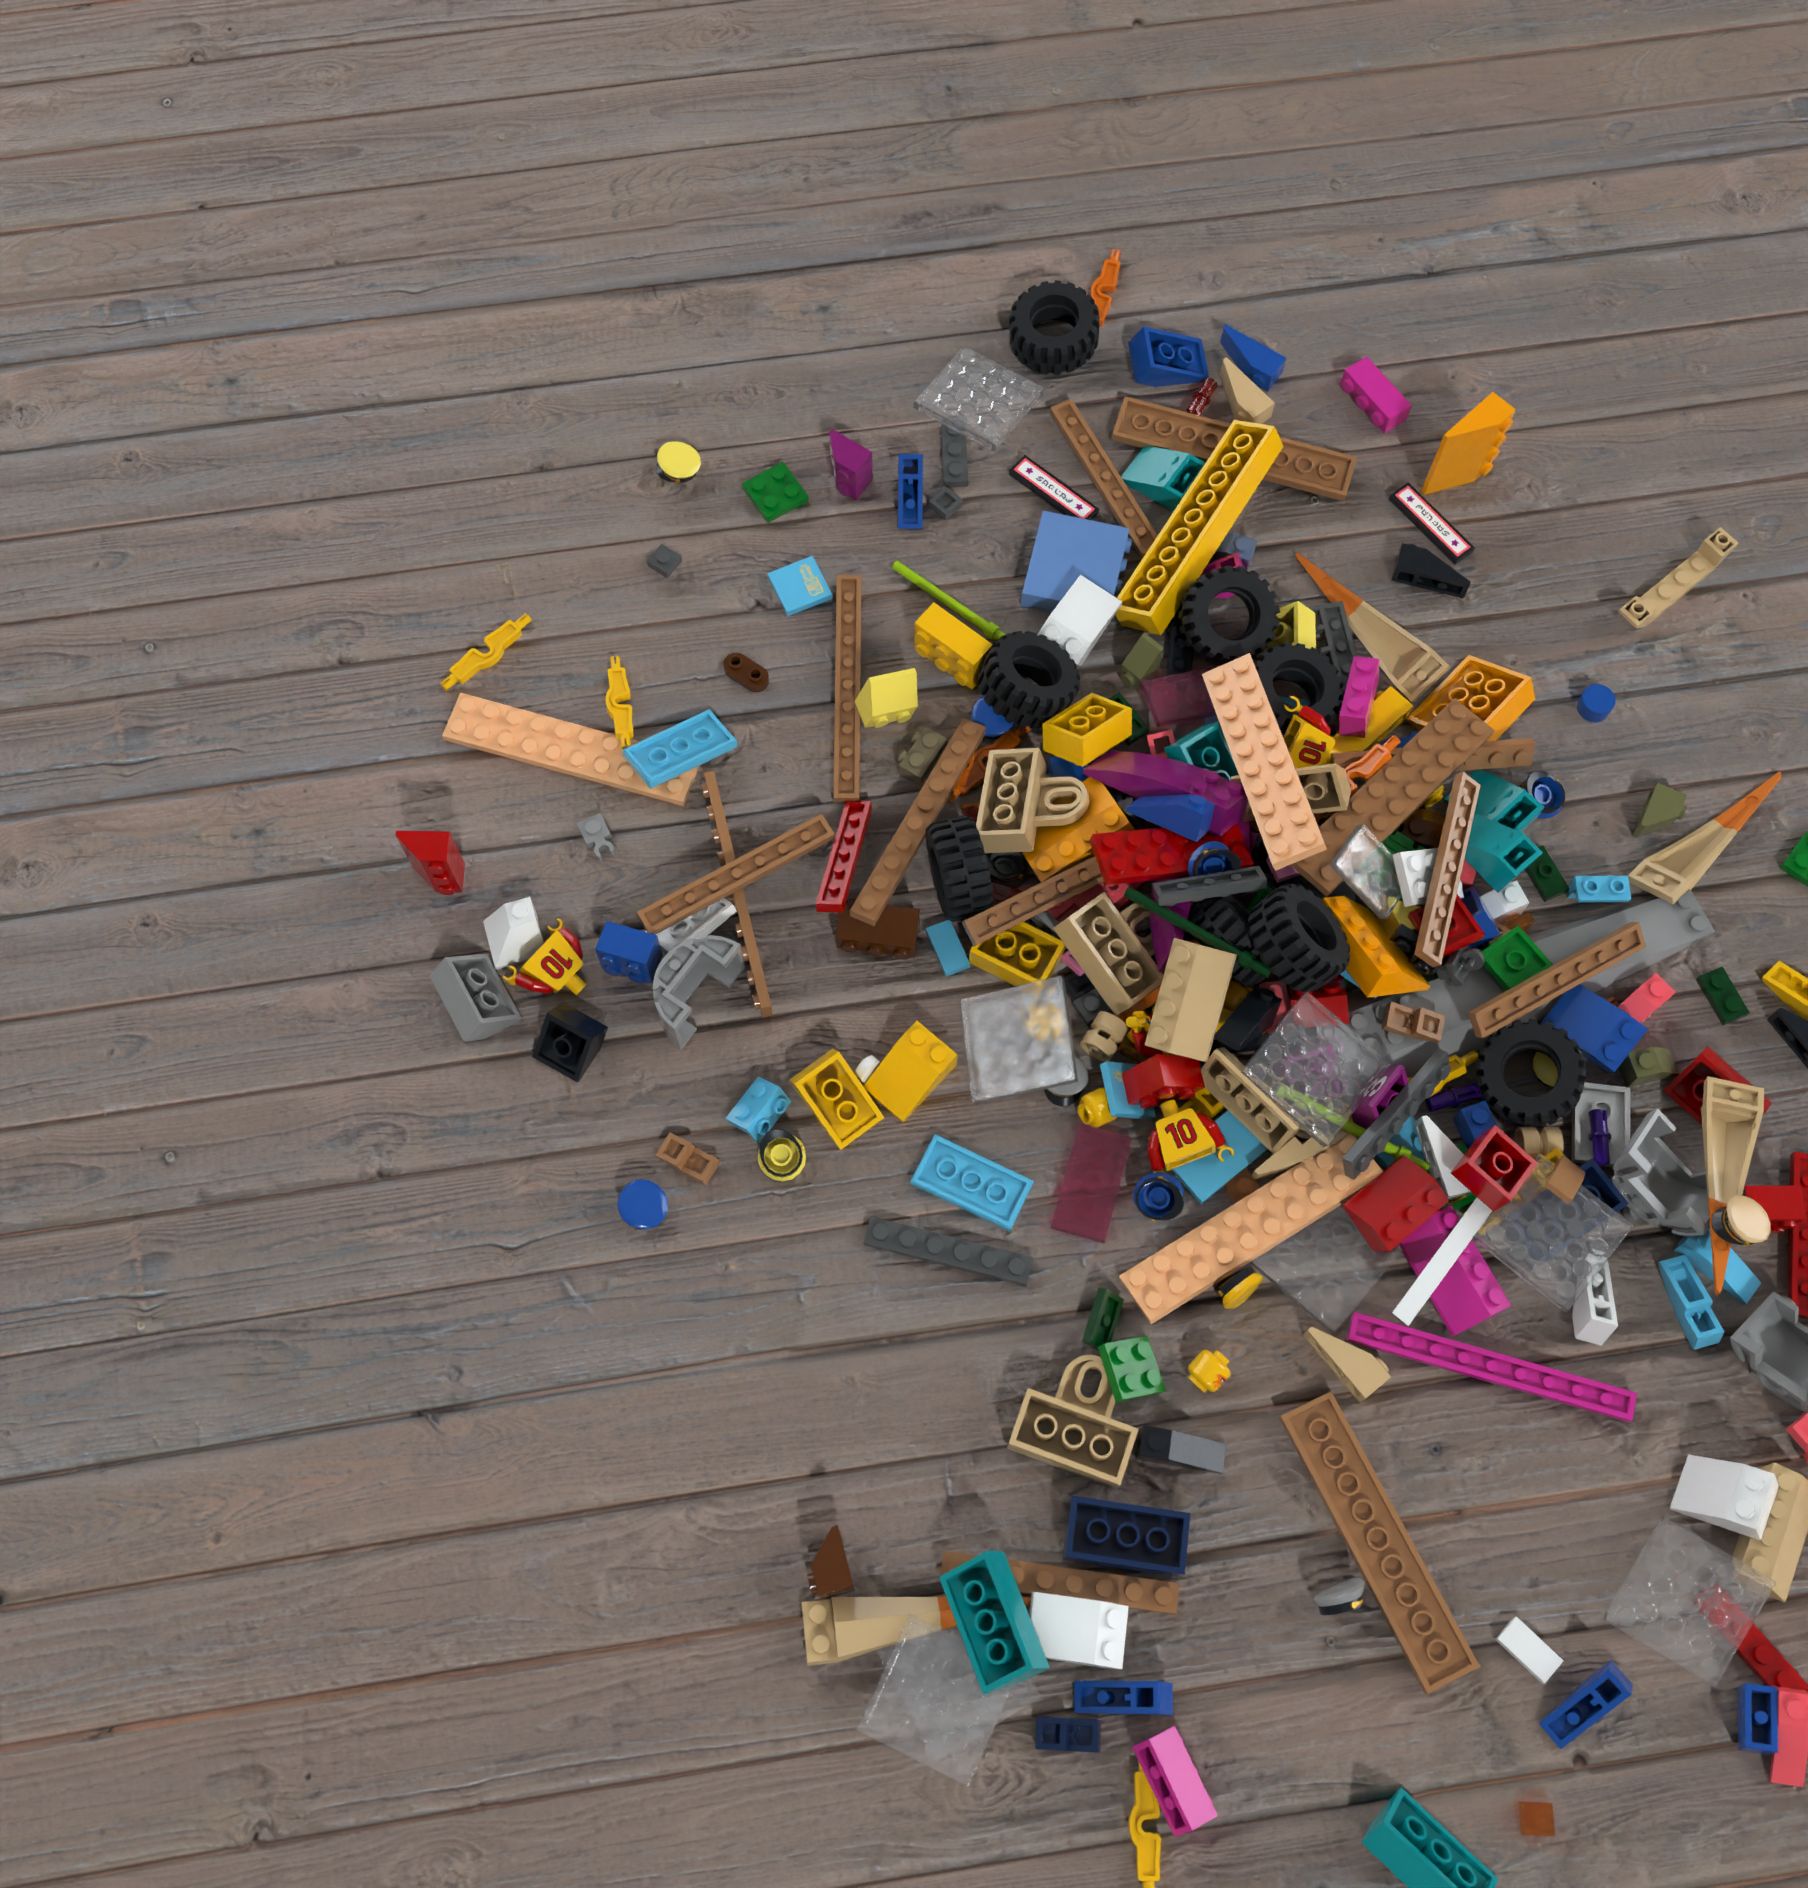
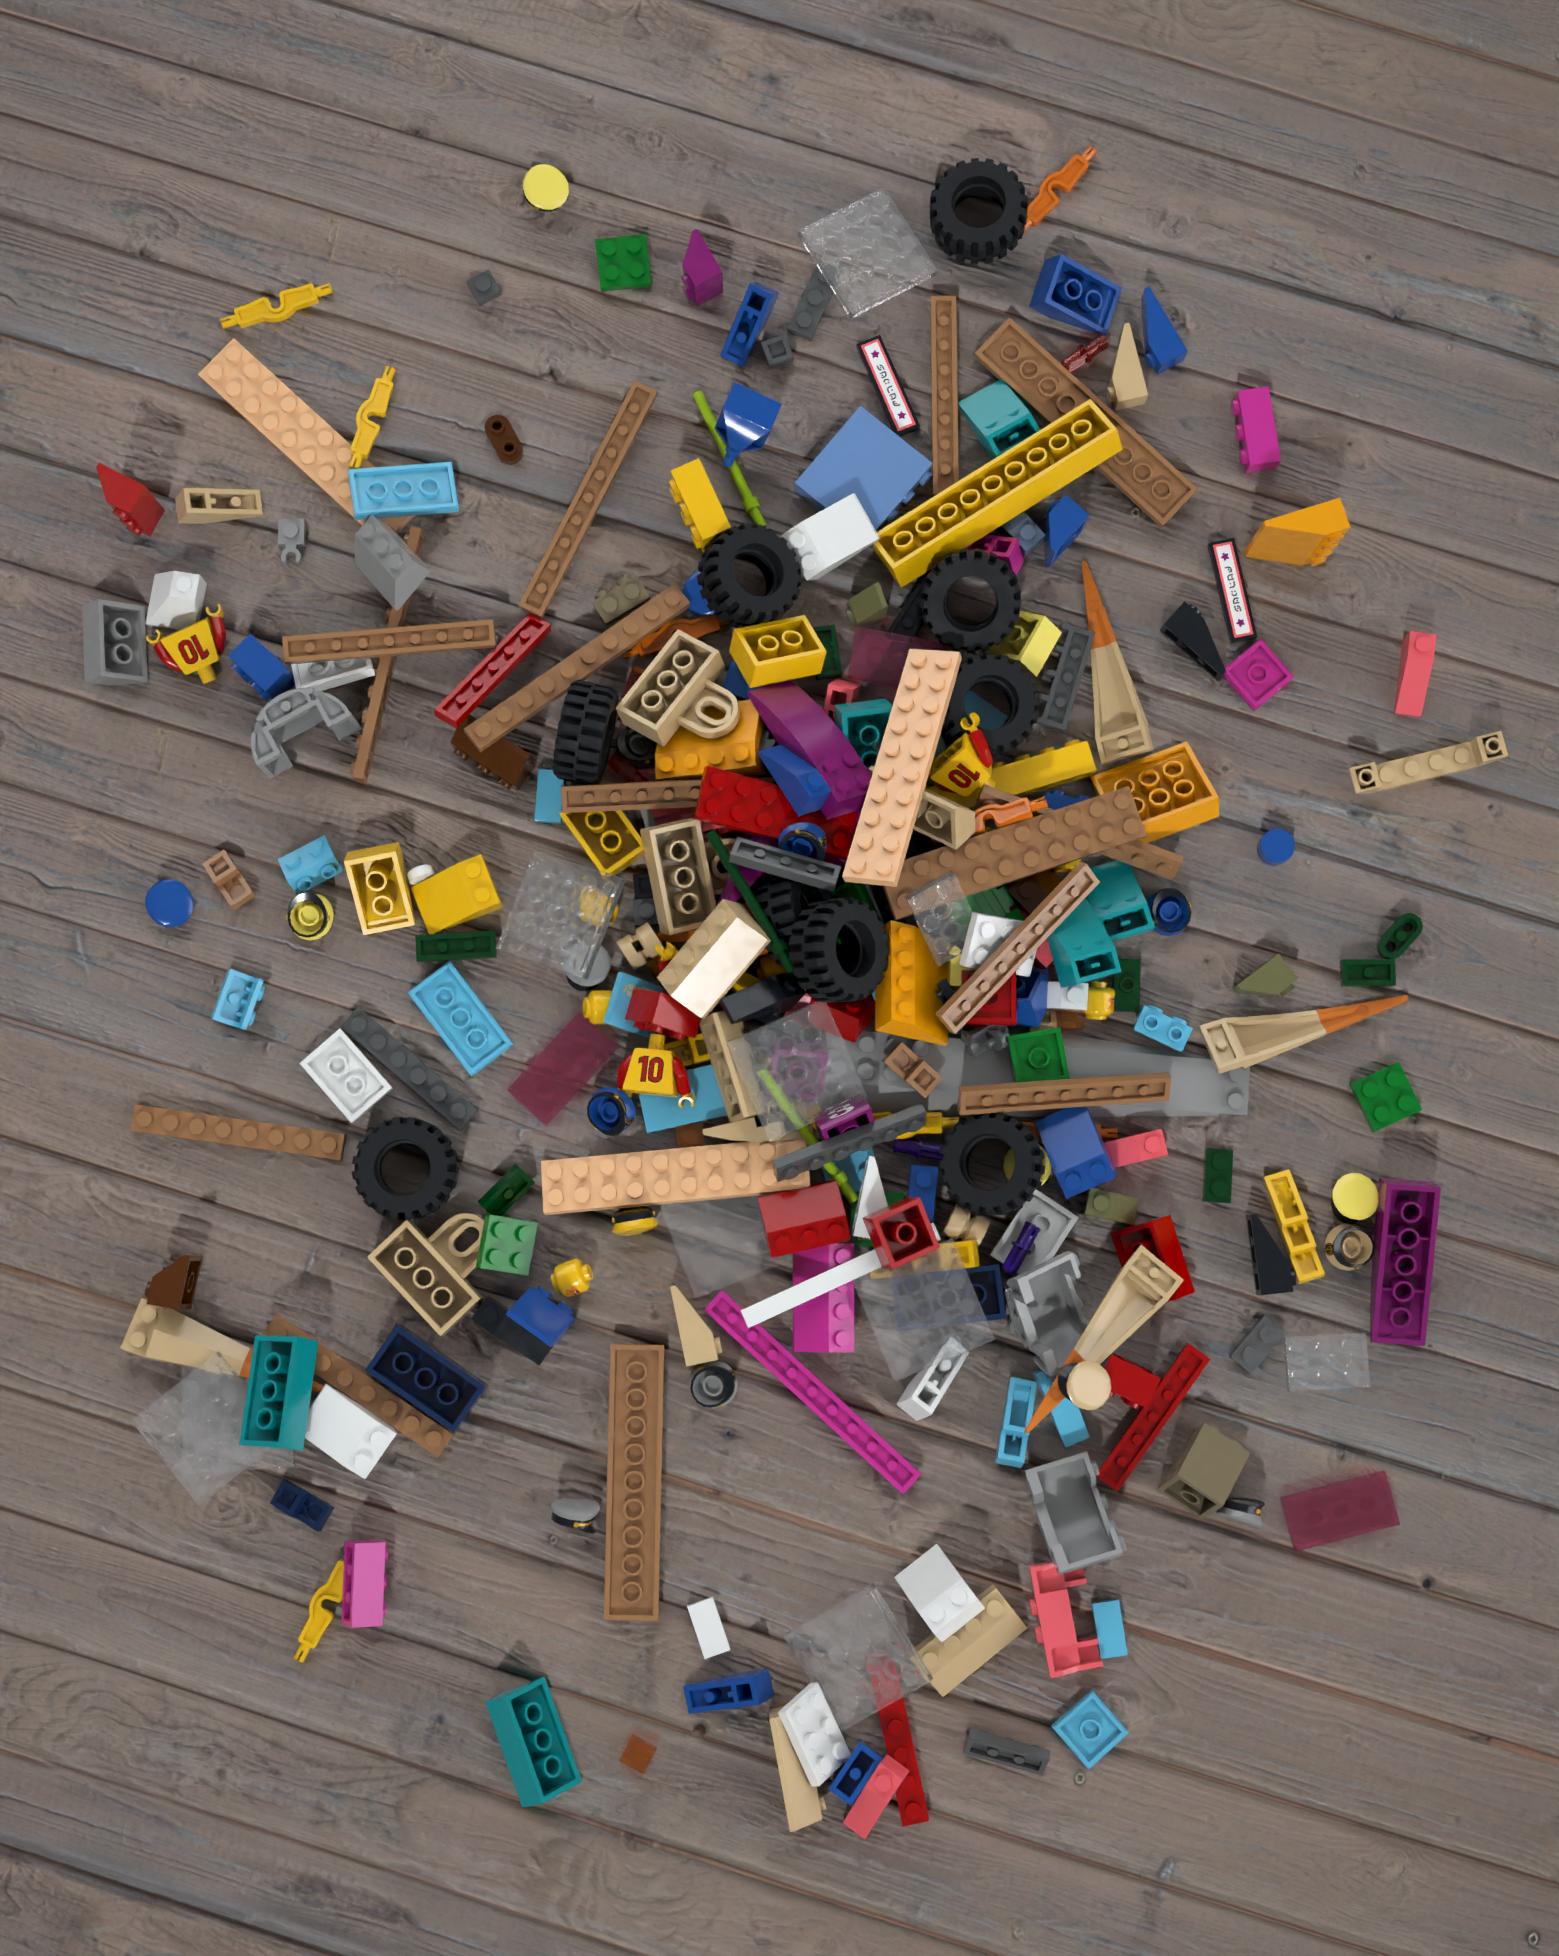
camera: 25 degrees right, 15 degrees up
(509, 837) = (217, 505): none -> tan slope
(569, 1041) = (176, 724): black slope -> none
(699, 810) = (388, 562): none -> light grey slope
(753, 1264) = (238, 999): none -> medium azure bracket
(799, 586) = (597, 373): medium azure tile -> none
(814, 1392) = (238, 1132): none -> medium nougat plate
(888, 698) = (613, 533): light yellow slope -> none
(893, 1285) = (346, 1075): none -> white plate
(934, 1118) = (456, 946): none -> dark green plate
(953, 560) = (745, 421): none -> blue piece
(1011, 1307) = (369, 1163): none -> black tyre
(1123, 1697) = (360, 1501): blue slope -> none
(1206, 1419) = (542, 1315): none -> blue slope
(1266, 526) = (1062, 526): none -> blue slope
(1359, 697) = (1046, 739): dark pink brick -> none
(1396, 1407) = (713, 1384): none -> light grey piece
(1493, 578) = (1257, 674): none -> dark pink tile
(1535, 893) = (1100, 1001): none -> yellow head
(1565, 1179) = (955, 1273): medium nougat slope -> none
(1618, 518) = (1414, 673): none -> coral slope
(1695, 1745) = (801, 1799): none -> tan slope
(1697, 1699) = (814, 1734): none -> white plate
(1736, 768) = (1367, 973): none -> dark green plate
(1742, 729) = (1399, 937): none -> dark green plate

